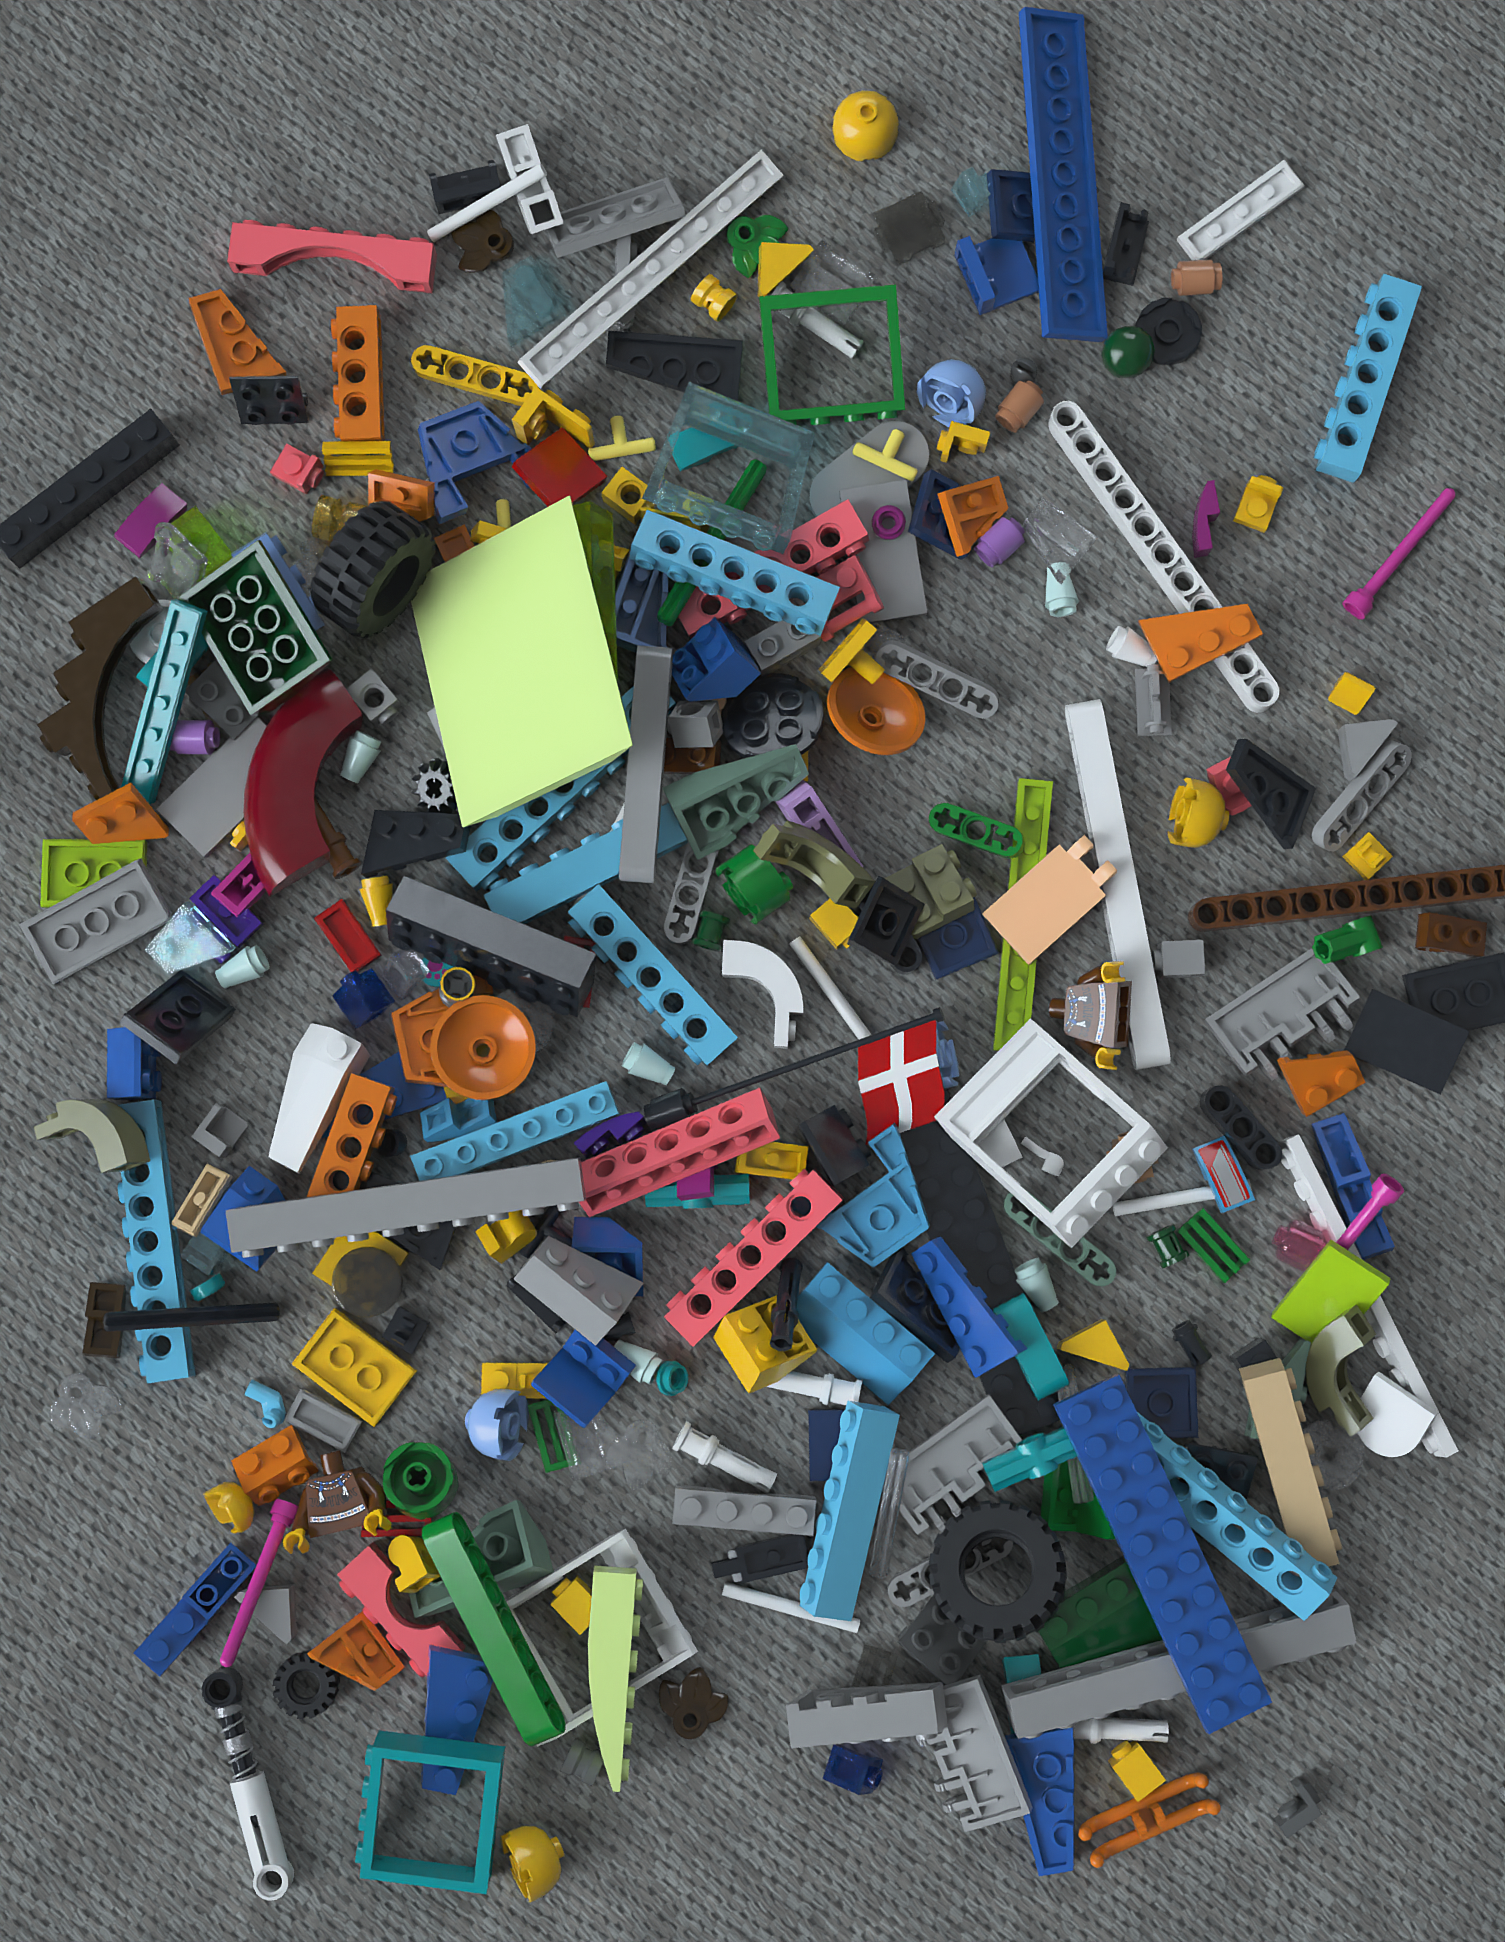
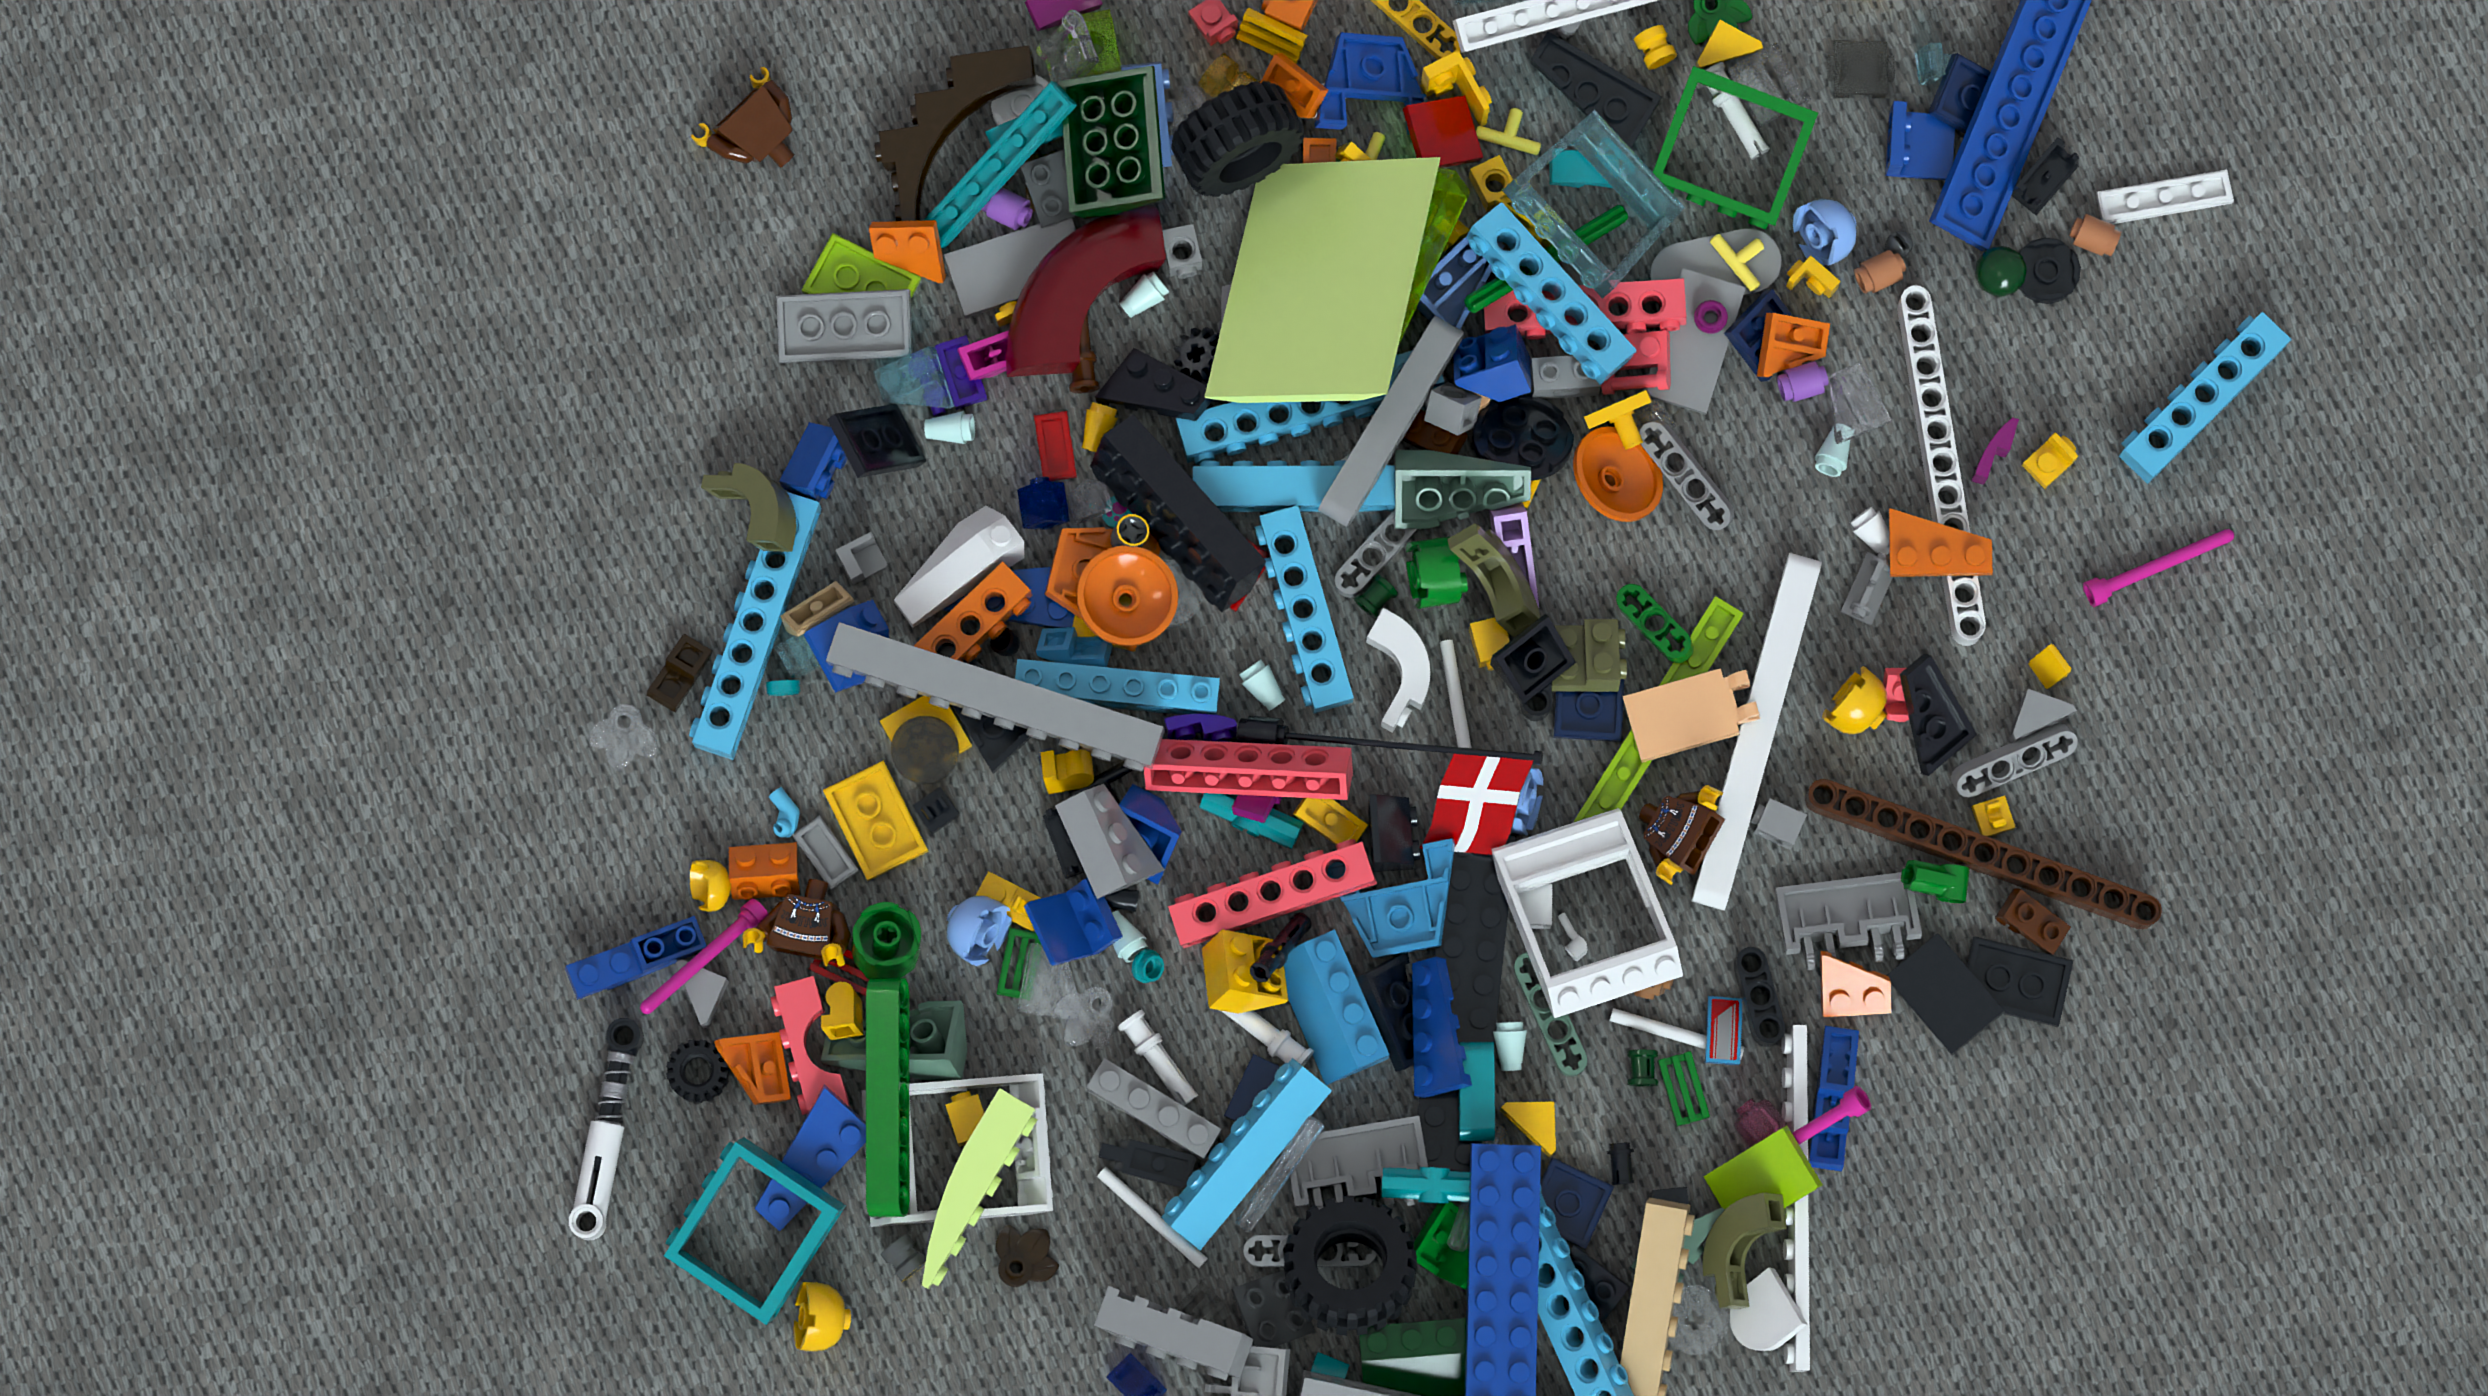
camera: 25 degrees right, 5 degrees down
(191, 1316) = (759, 703): black axle -> none

